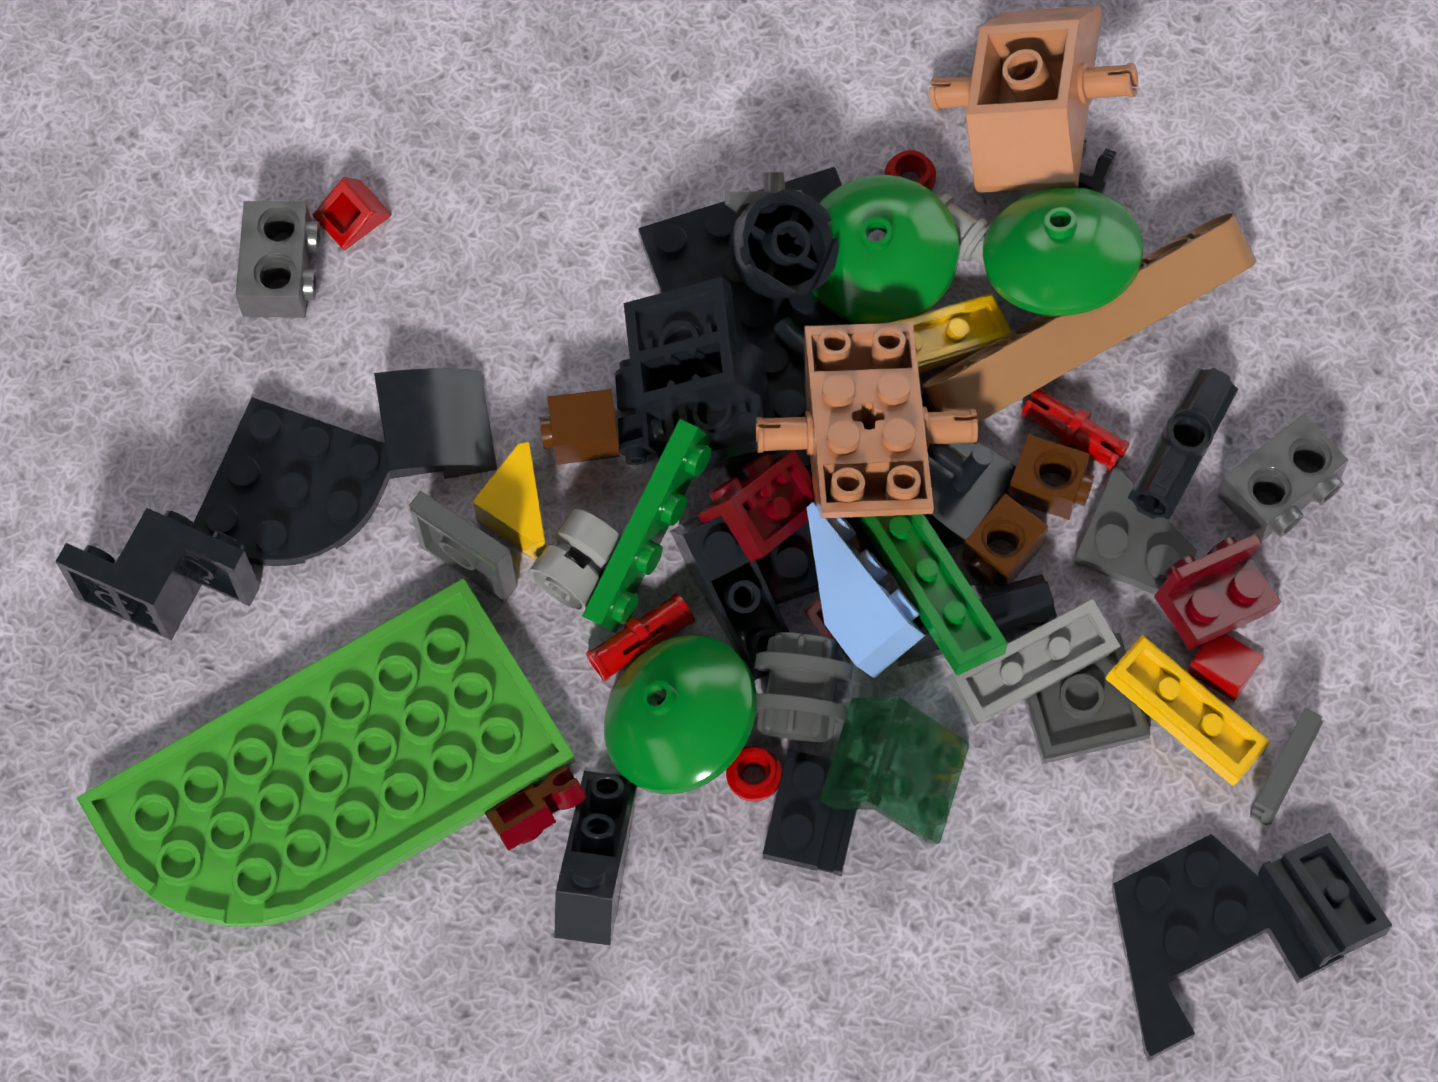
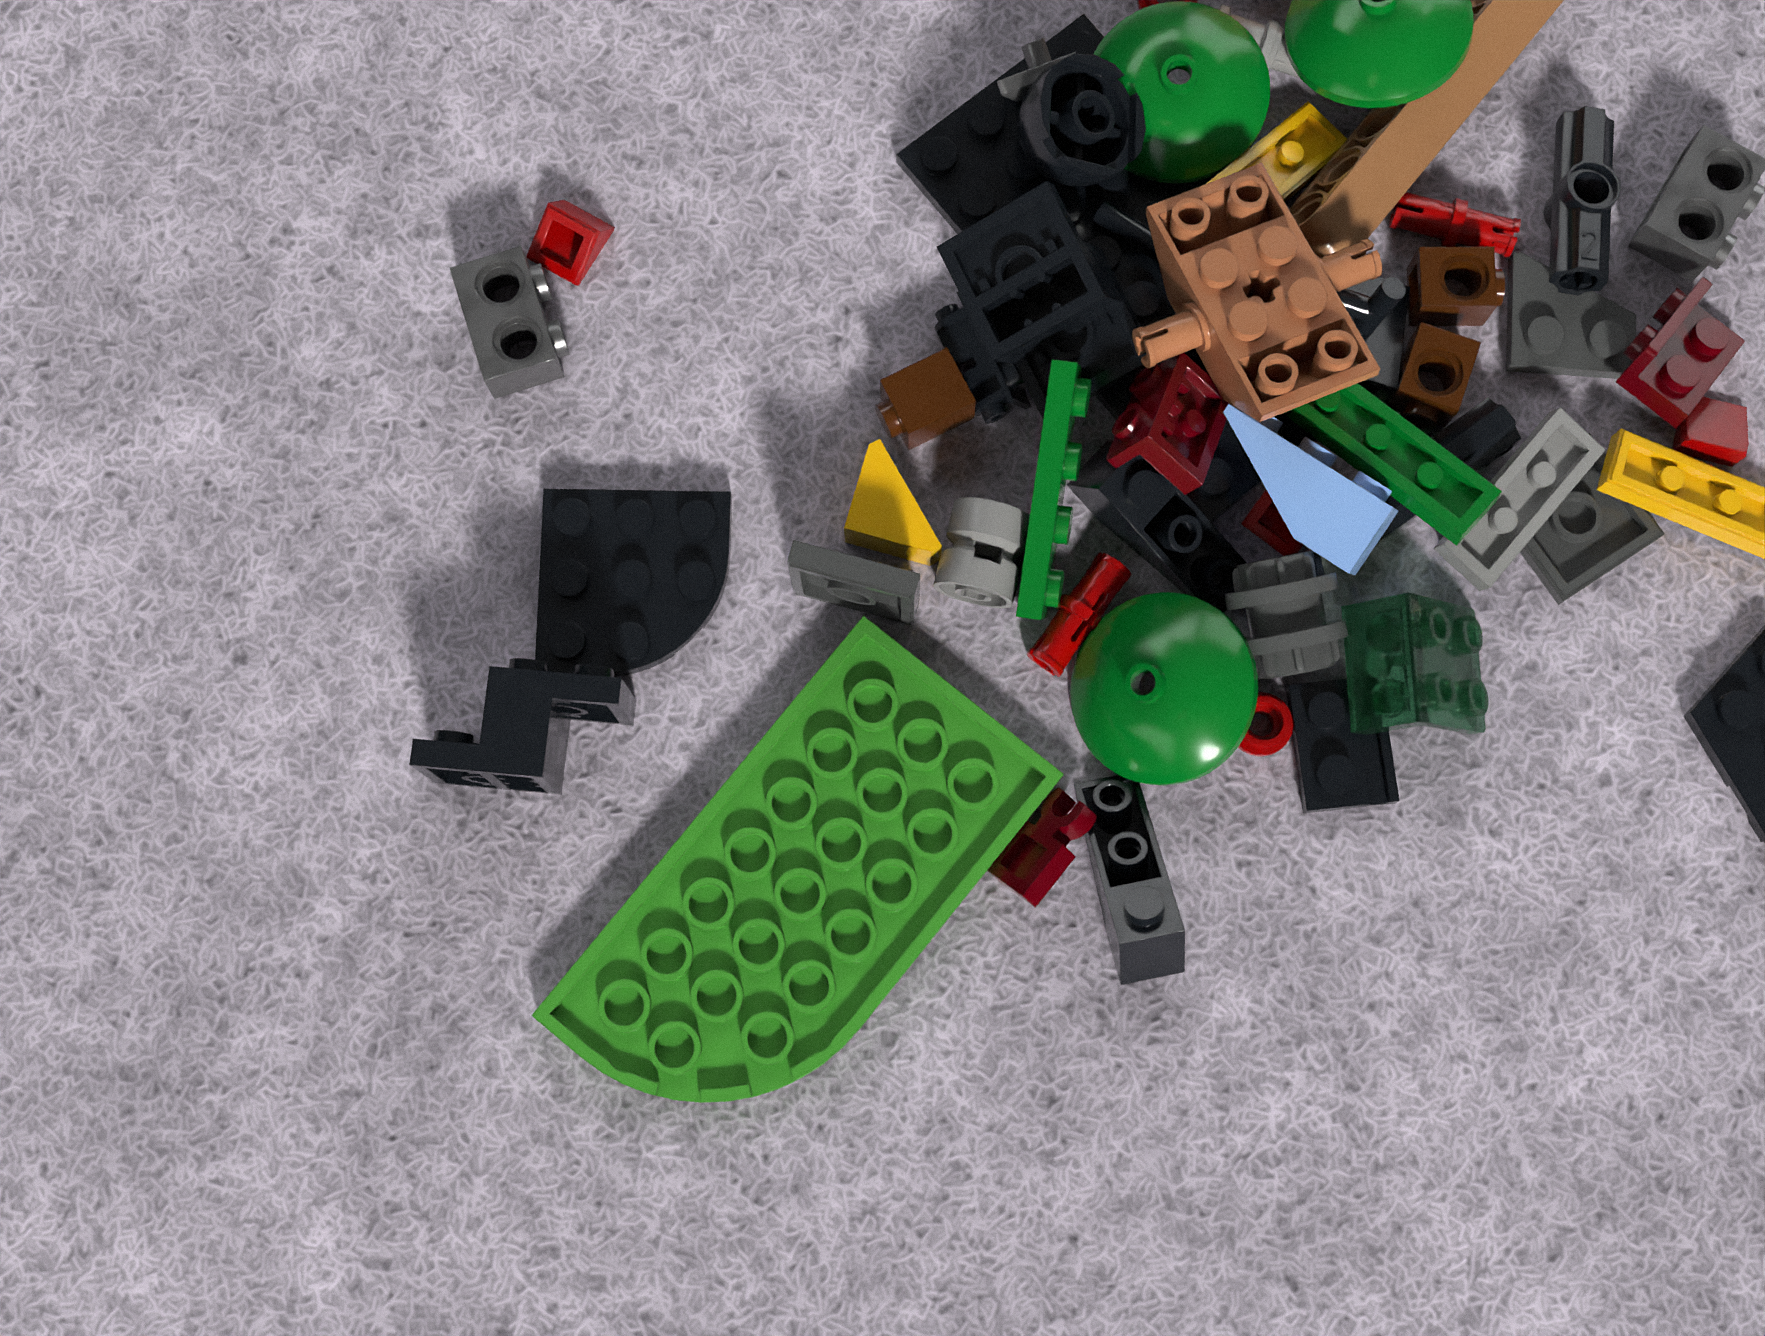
camera: 20 degrees left, 10 degrees up
(435, 422) = (759, 449): black slope -> none

